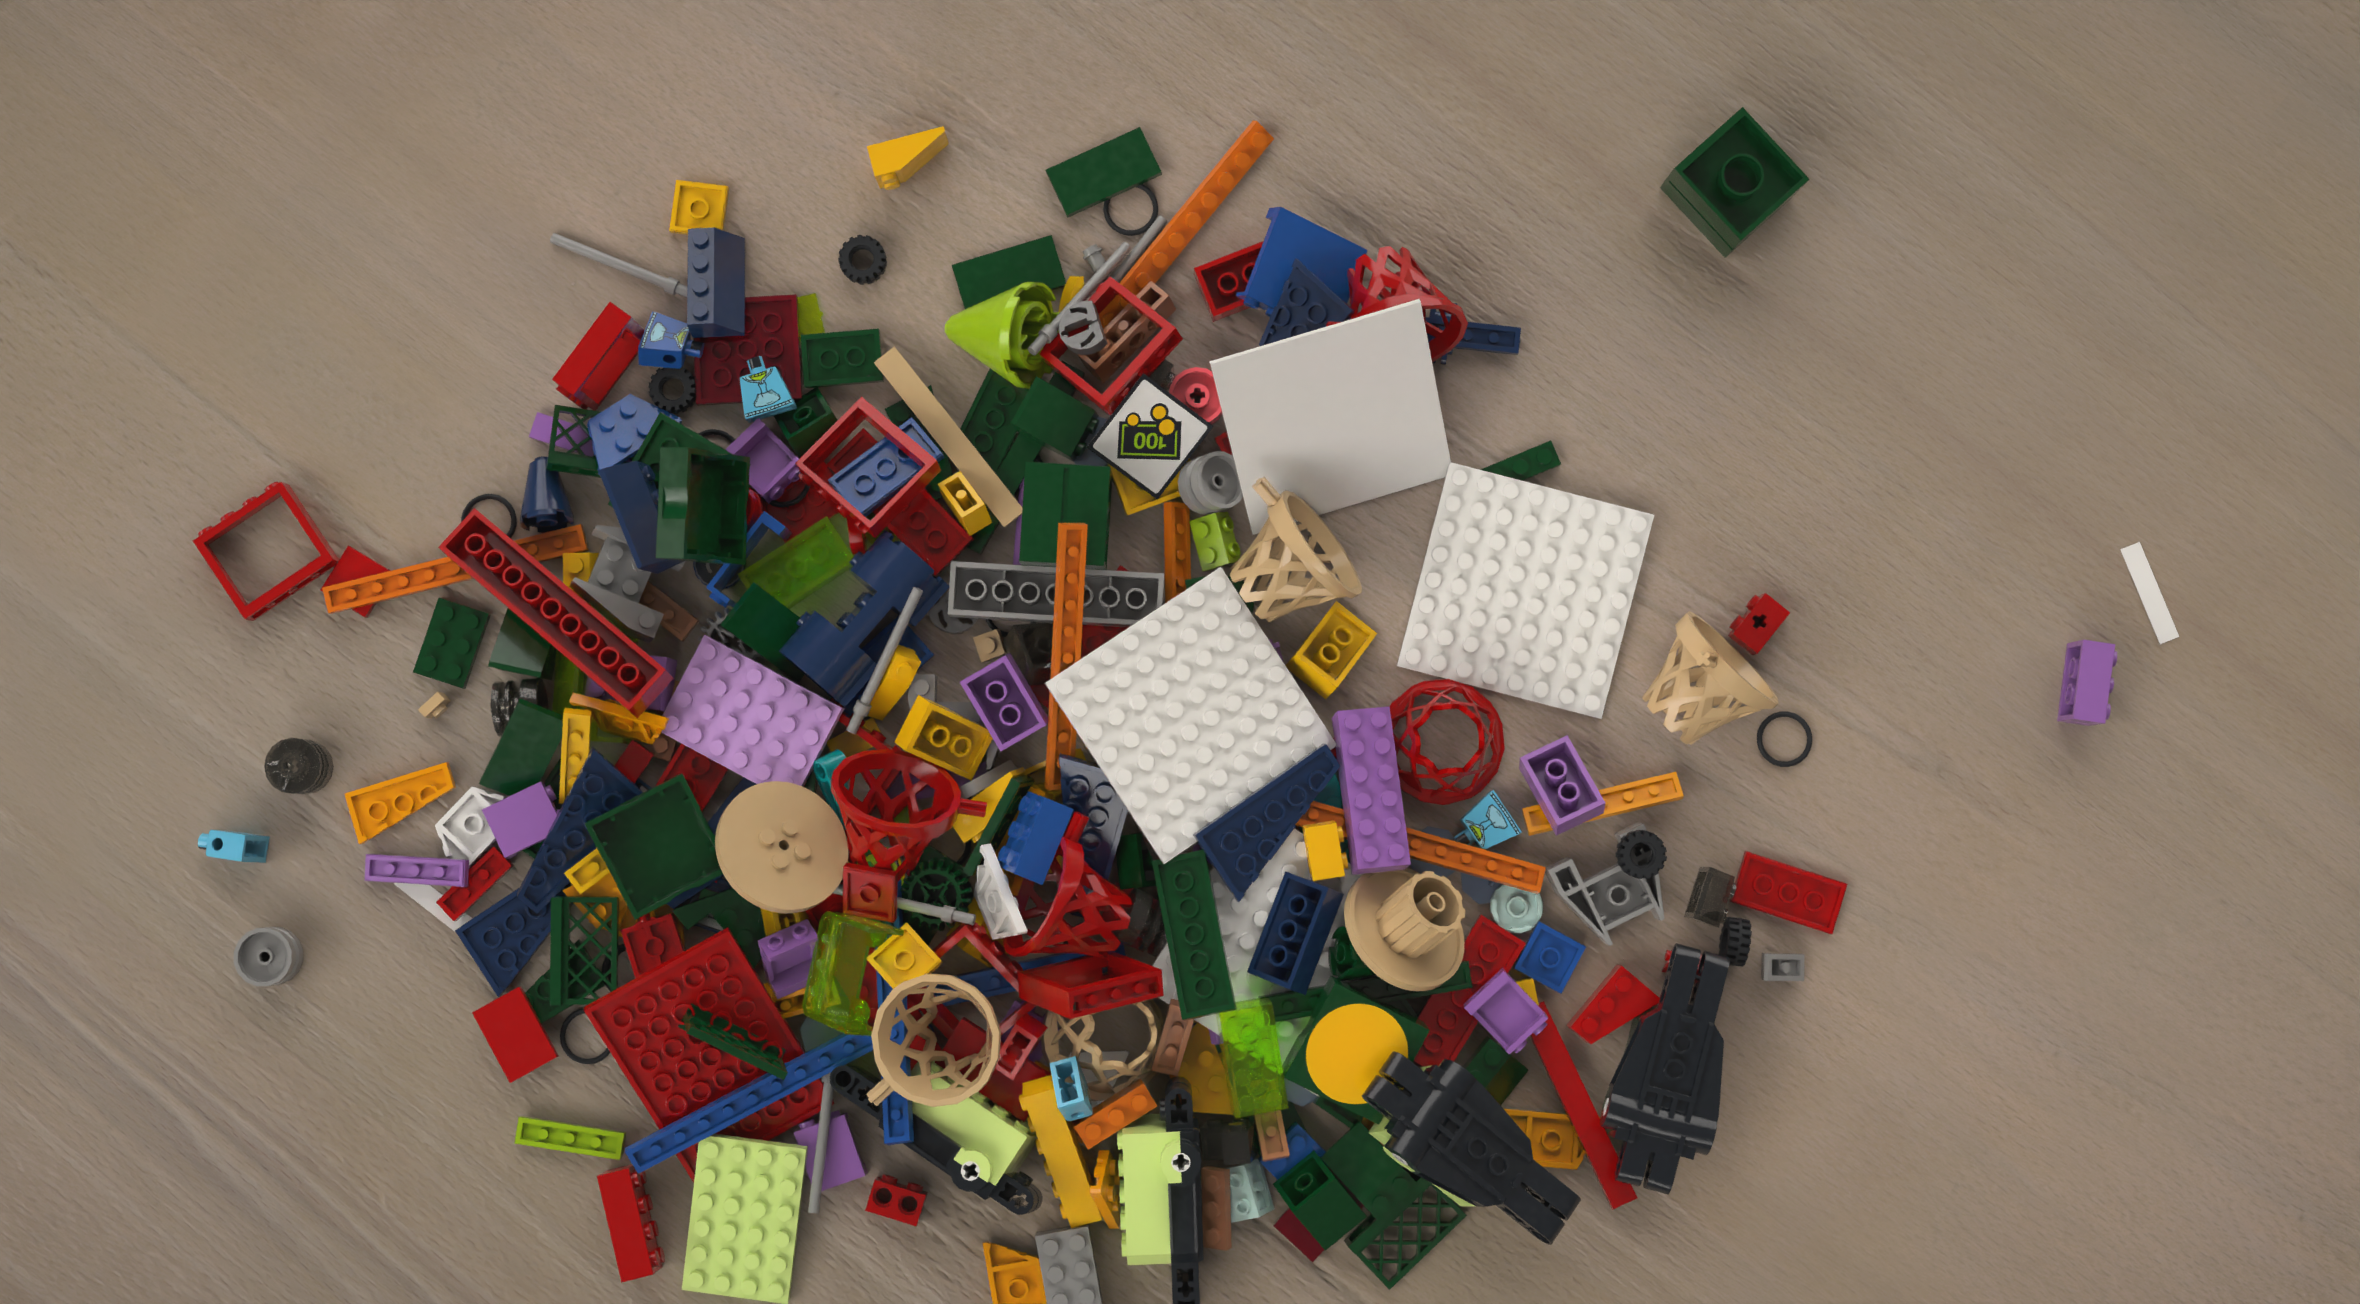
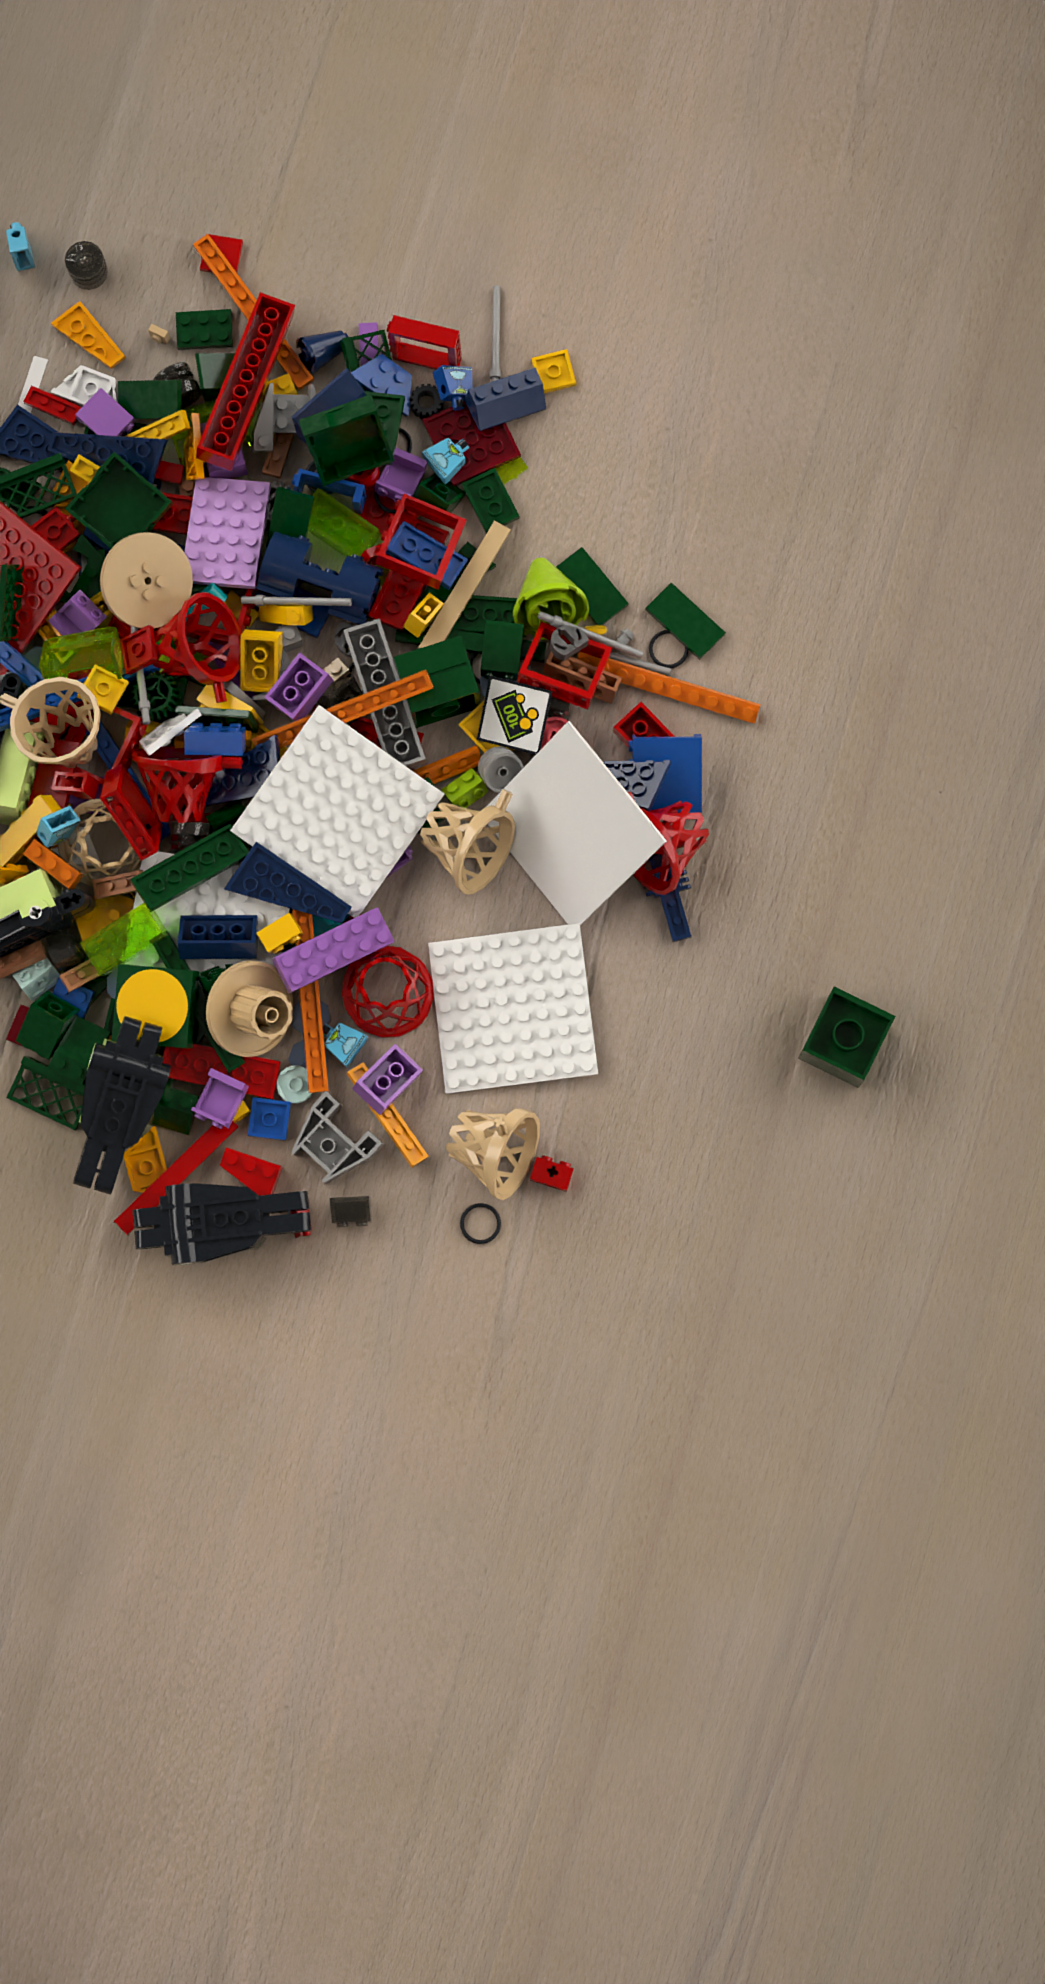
camera: 75 degrees right, 5 degrees down
(291, 584) = (202, 214): red window -> none
(416, 870) = (47, 365): medium lavender tile -> none
(494, 497) = (310, 322): black tyre -> none
(860, 243) = (562, 477): black tyre -> none
(902, 157) = (639, 486): yellow slope -> none
(1331, 650) = (421, 894): yellow slope -> none
(1527, 463) = (600, 976): dark green plate -> none
(1624, 857) = (351, 1138): black tyre -> none
(1735, 940) = (326, 1238): black tyre -> none
(1782, 967) = (322, 1277): light grey slope -> none
(1788, 892) = (375, 1265): red tile -> none
(2087, 682) = (598, 1413): medium lavender brick -> none
(2149, 593) = (681, 1439): white sticker -> none

